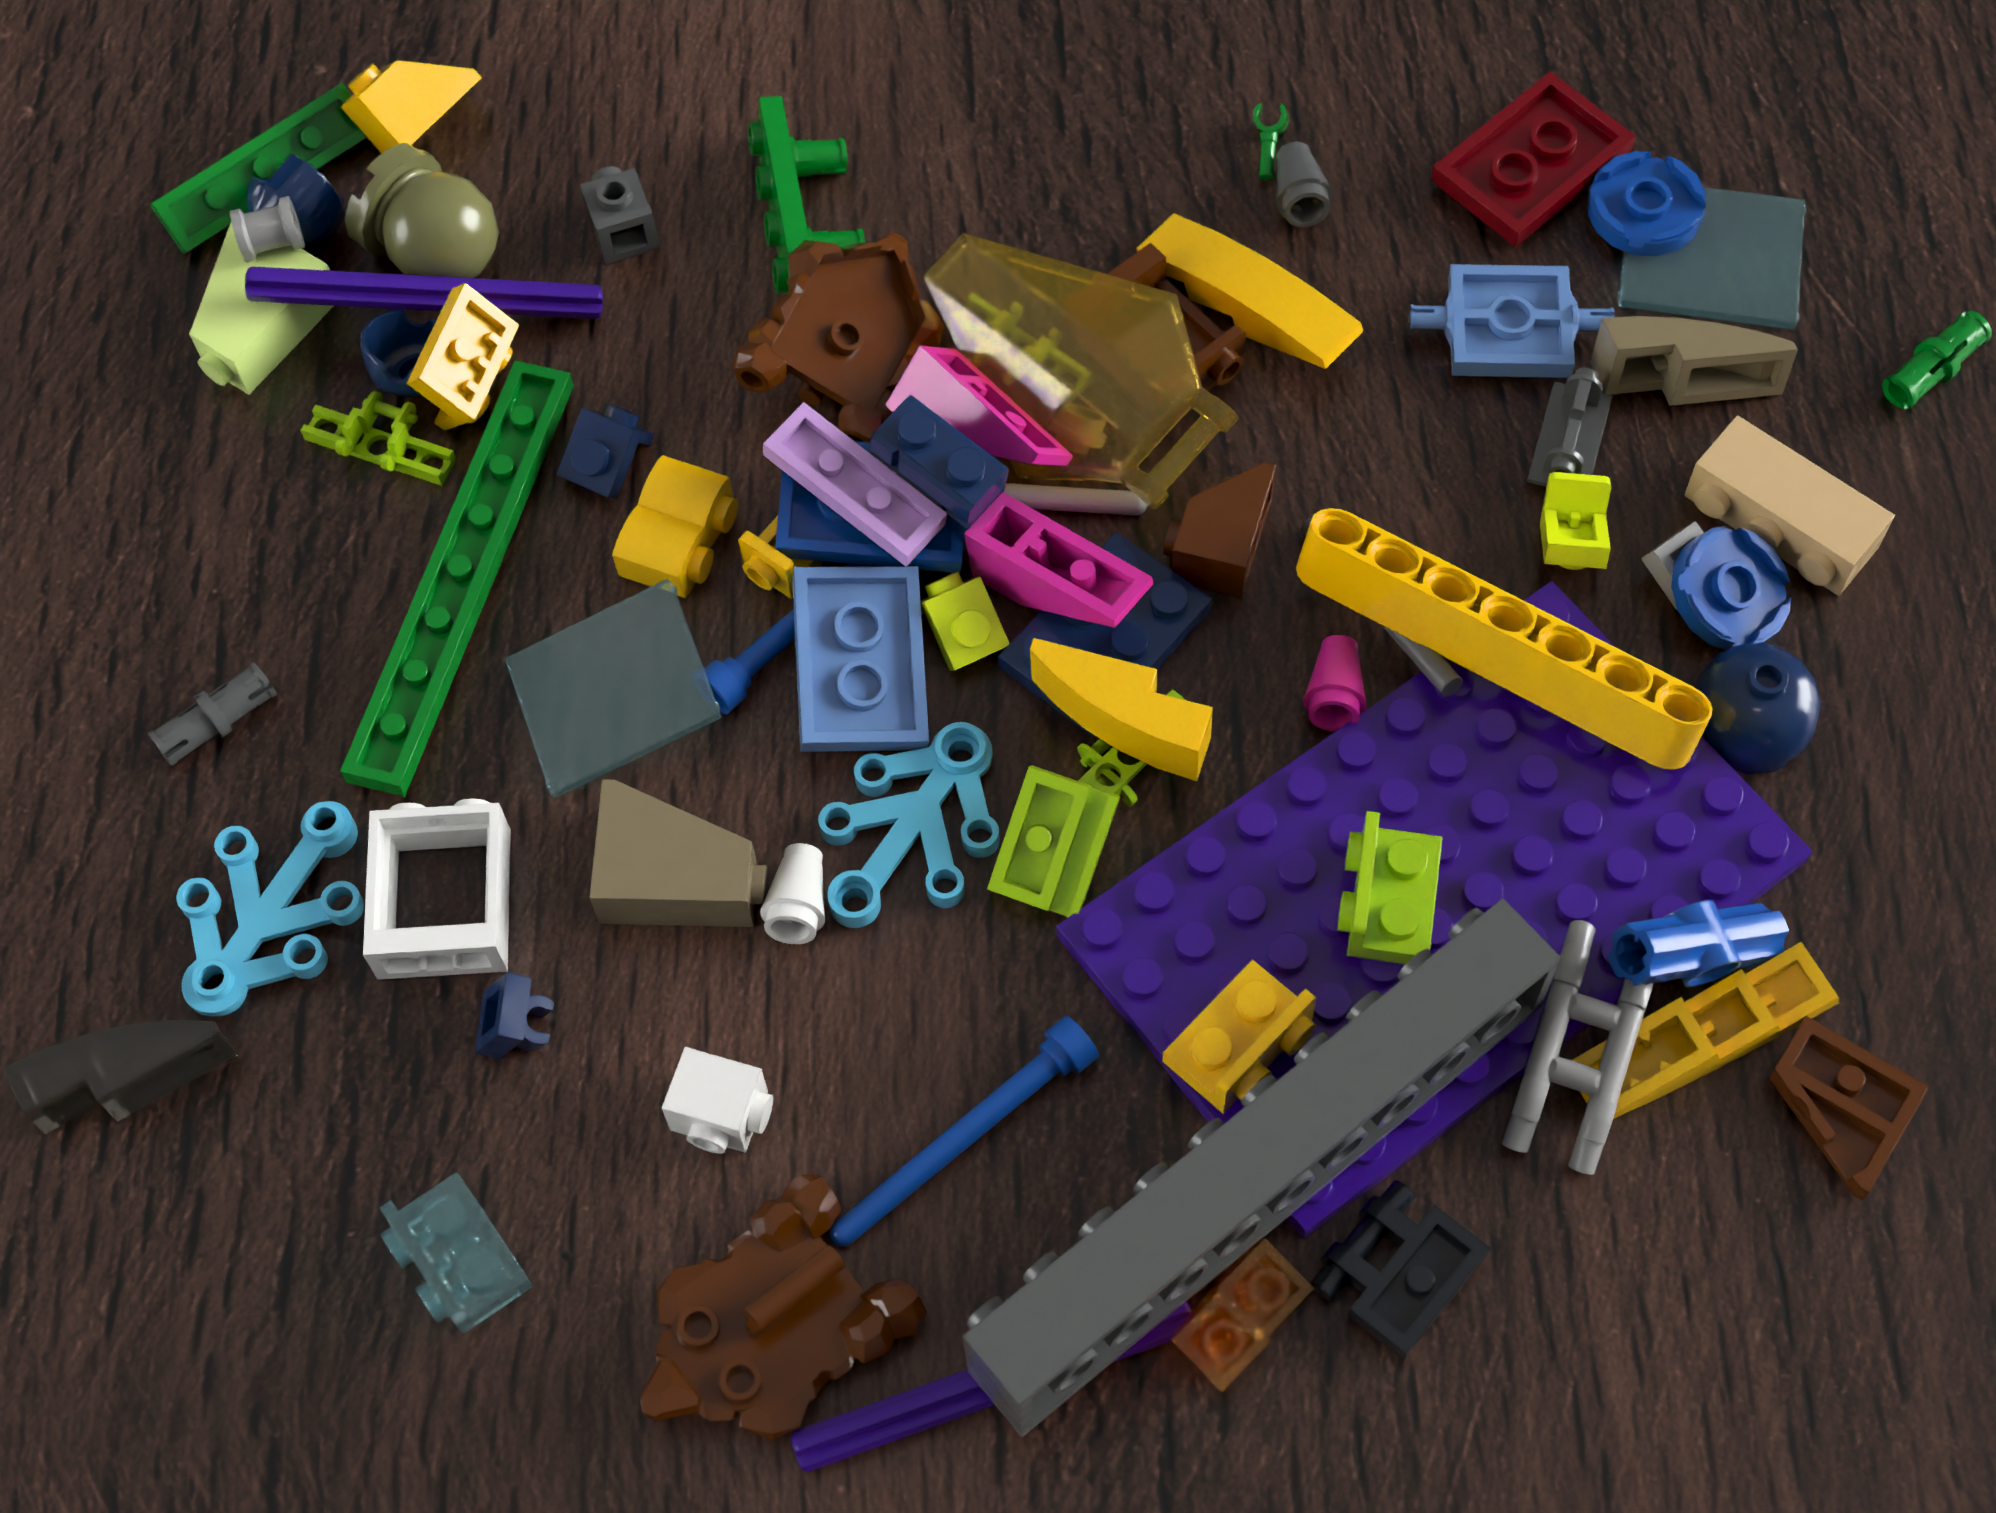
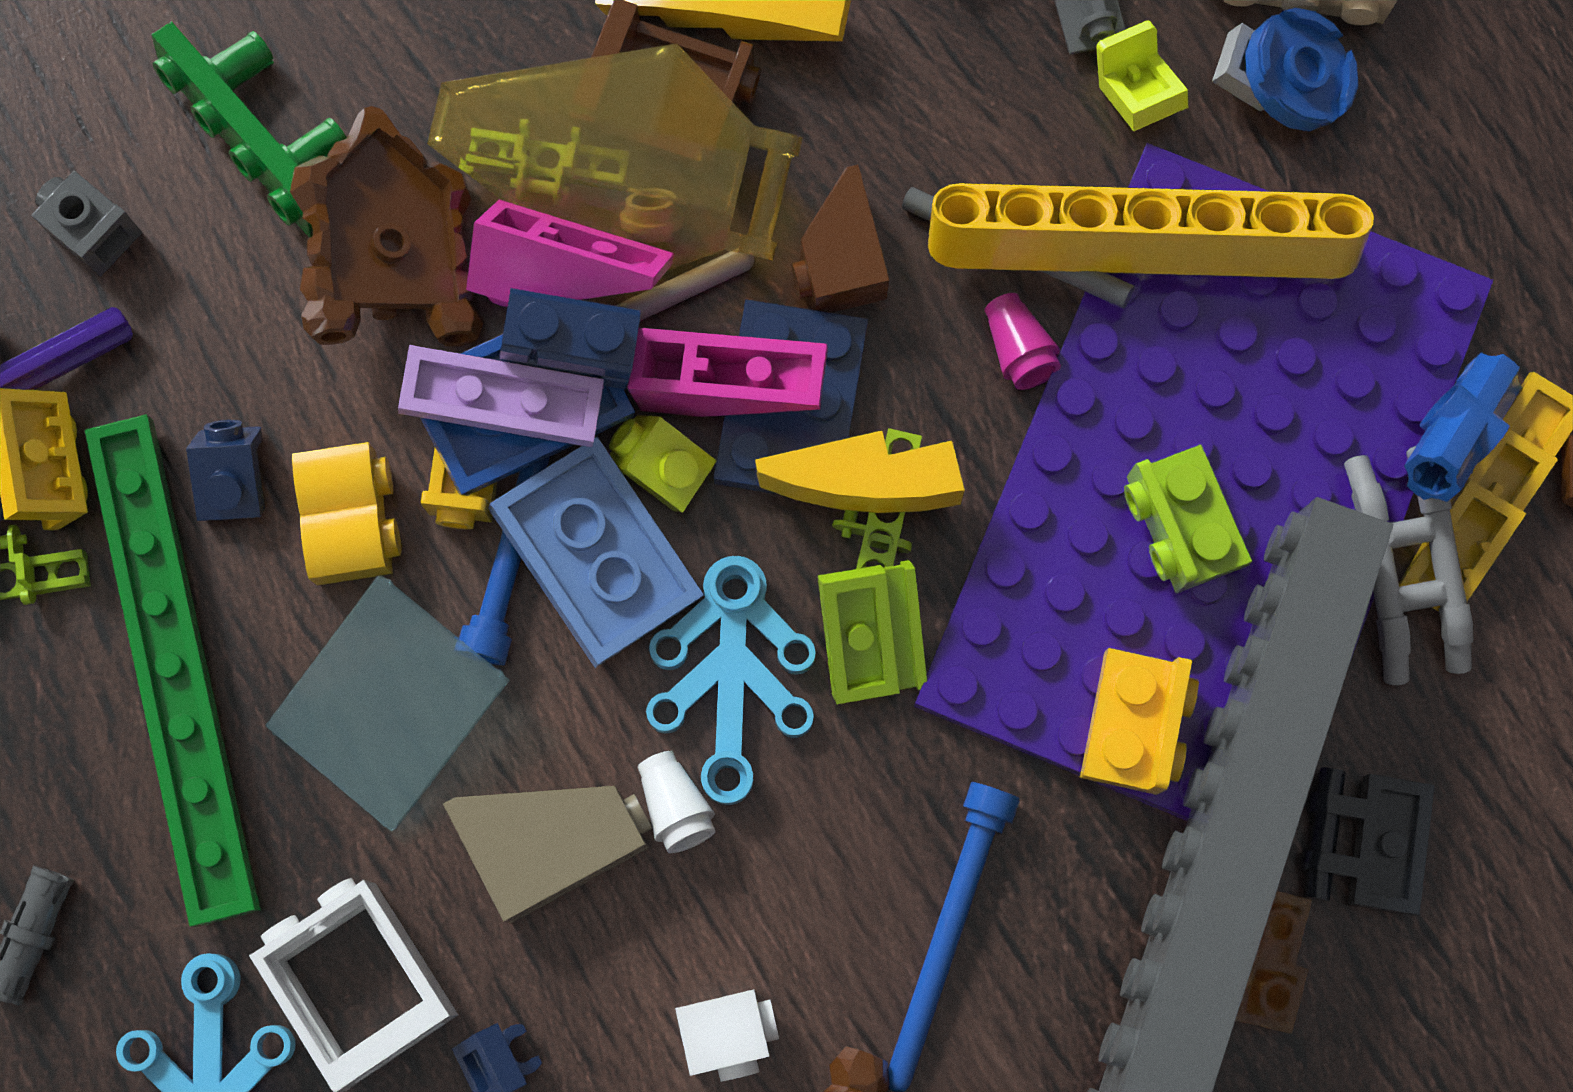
camera: 35 degrees left, 15 degrees up
(1760, 706) = (1382, 161): dark blue cylinder -> none

